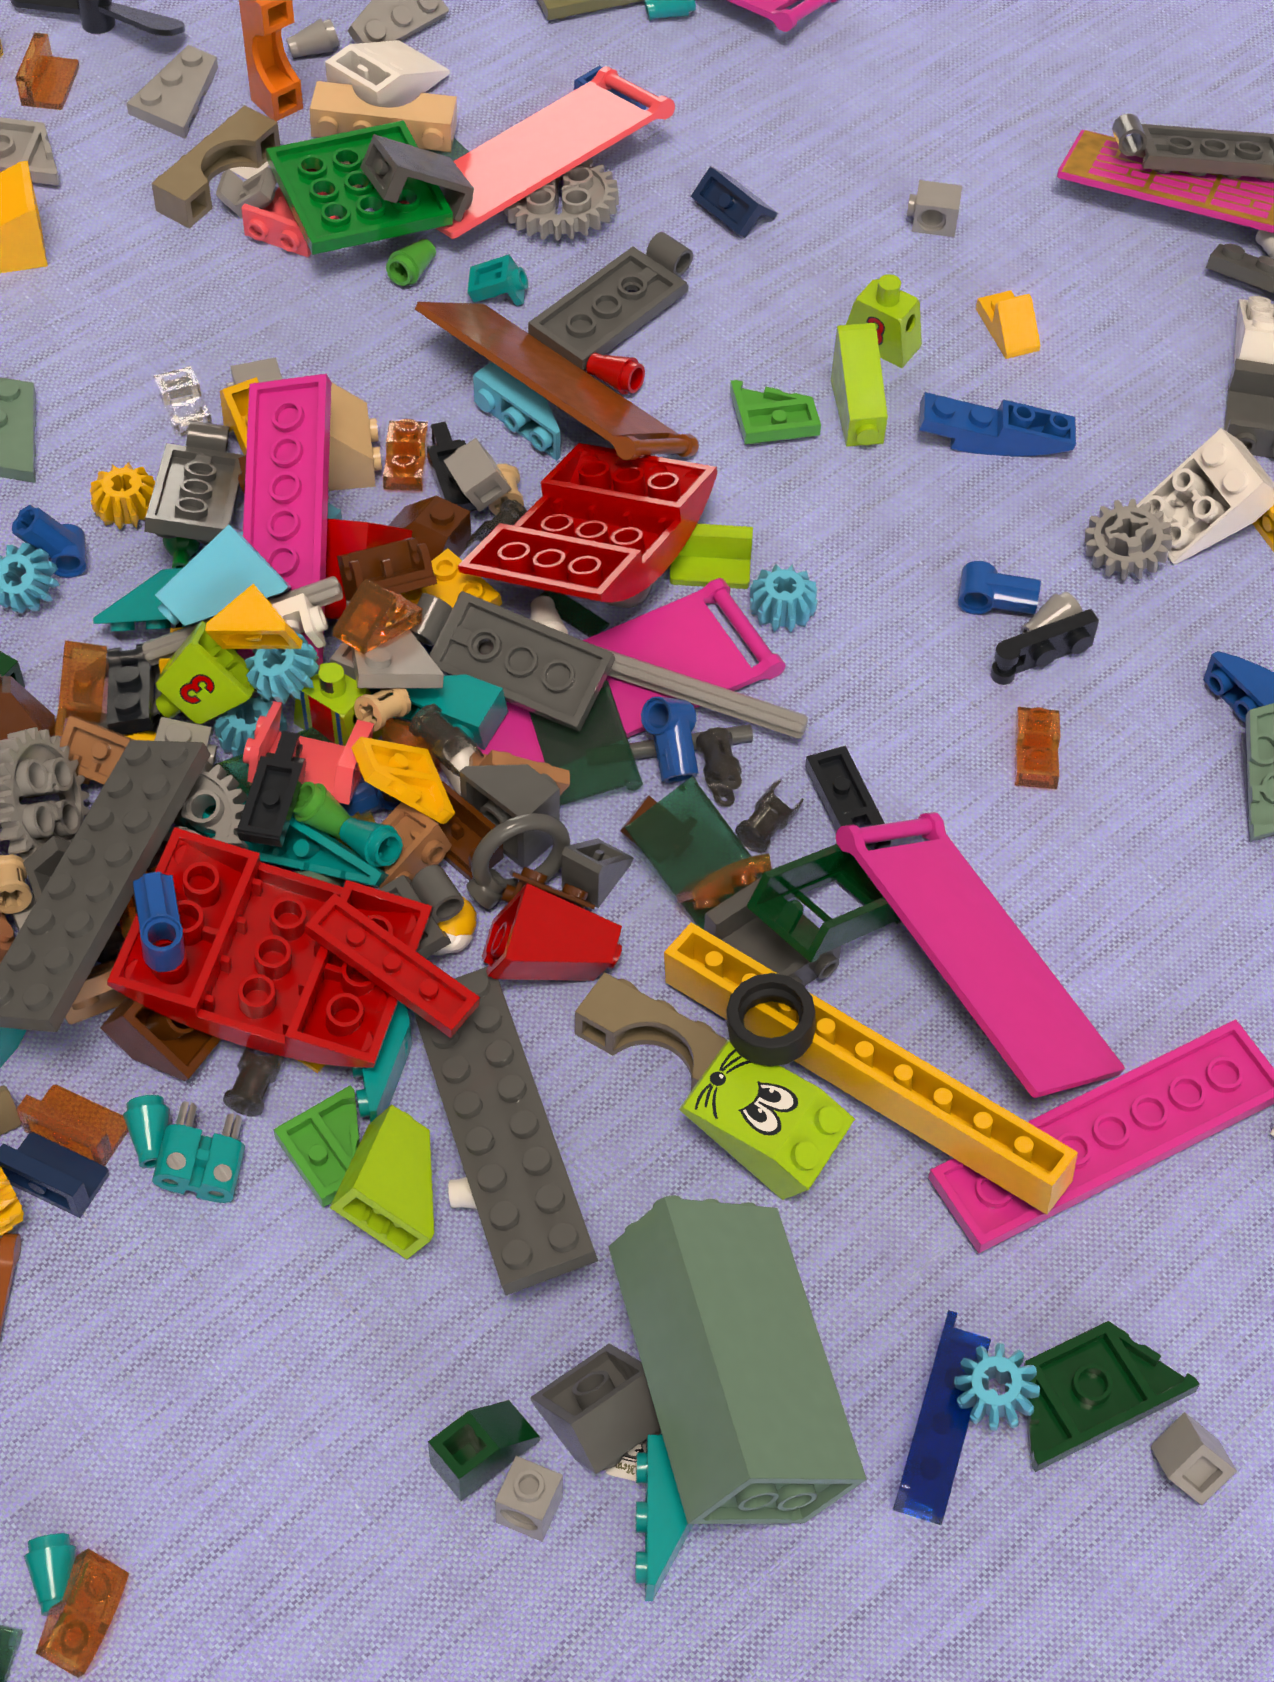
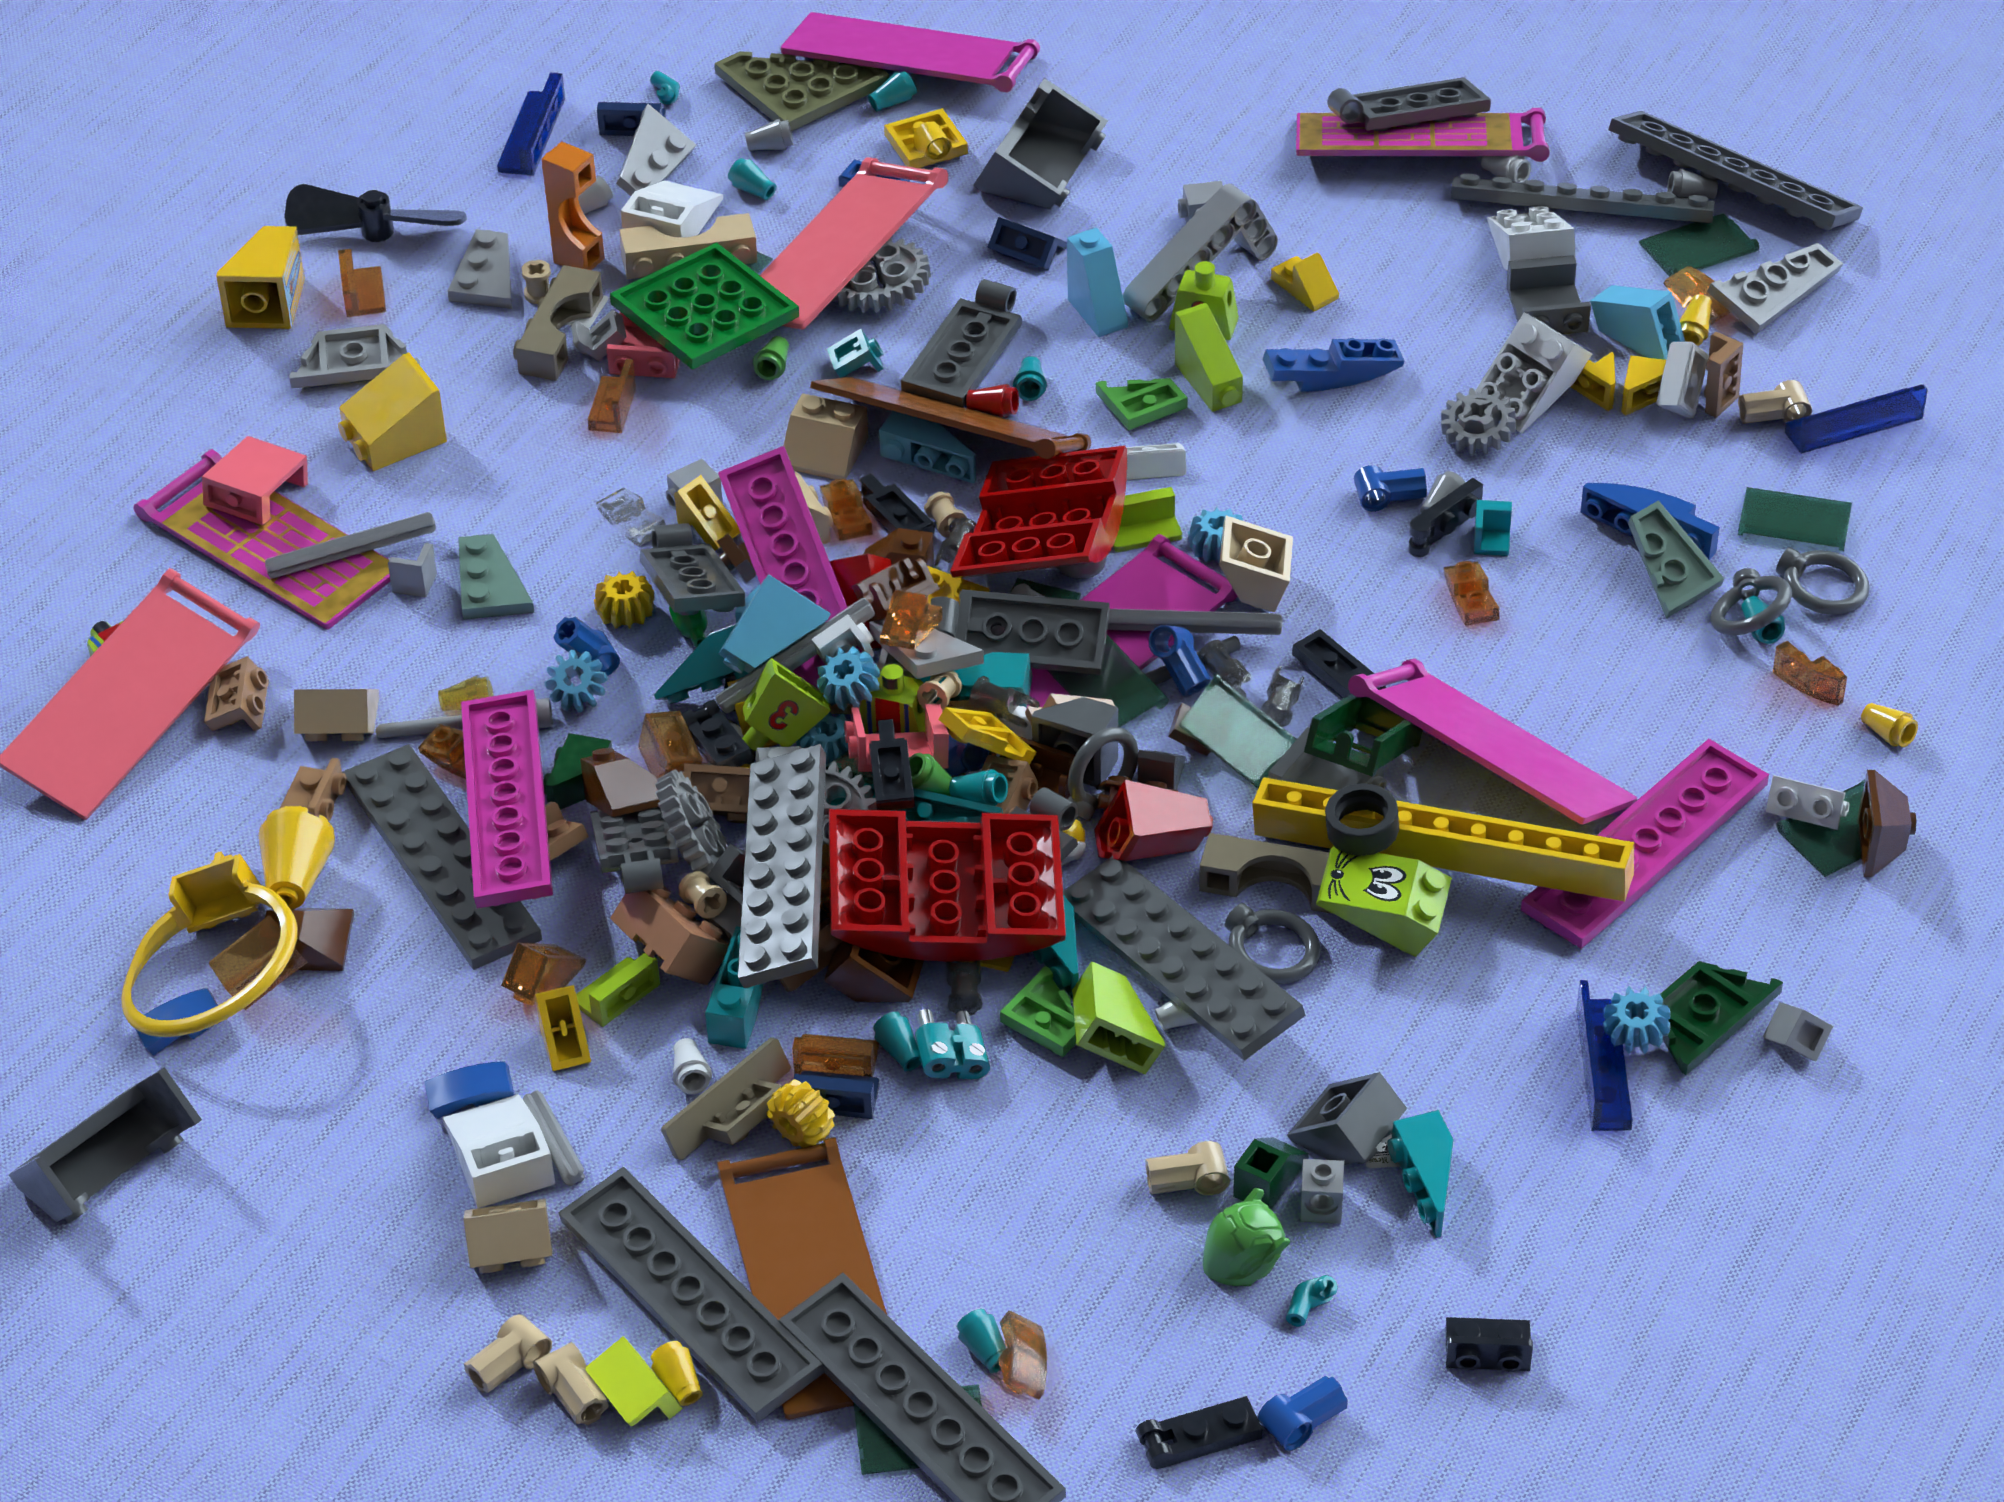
camera: 15 degrees left, 10 degrees down
(159, 920) = (857, 873): blue piece -> none
(217, 113) = (537, 280): none -> tan bush
(230, 266) = (613, 401): none -> clear orange panel
(252, 624) = (820, 646): yellow slope -> none
(391, 162) = (739, 279): dark grey panel -> none
(392, 965) = (1050, 860): red plate -> none
(402, 1417) = (1198, 1169): none -> tan piece
(406, 1541) = (1243, 1242): none -> bright green helmet
(419, 366) = (825, 436): none -> tan slope
(455, 1638) = (1308, 1296): none -> teal arm
(477, 474) = (925, 503): light grey brick -> none
(483, 59) = (749, 178): none -> teal cone
(526, 20) = (772, 136): none -> light grey cone
(602, 1096) = (1245, 922): none -> dark grey piece
(664, 359) = (1030, 379): none -> teal cone
(681, 62) = (926, 139): none -> yellow plate
(718, 883) = (1264, 753): clear orange slope -> none
(734, 1363) = (1439, 1049): sand green container -> none
(753, 487) = (1156, 461): none -> white slope
(776, 266) = (1095, 282): none -> medium azure slope
(792, 103) = (1043, 149): none -> dark grey windscreen
(802, 644) = (1256, 562): none -> tan slope
(902, 251) = (1224, 217): none -> light grey beam
(1092, 674) = (1492, 527): none -> teal panel

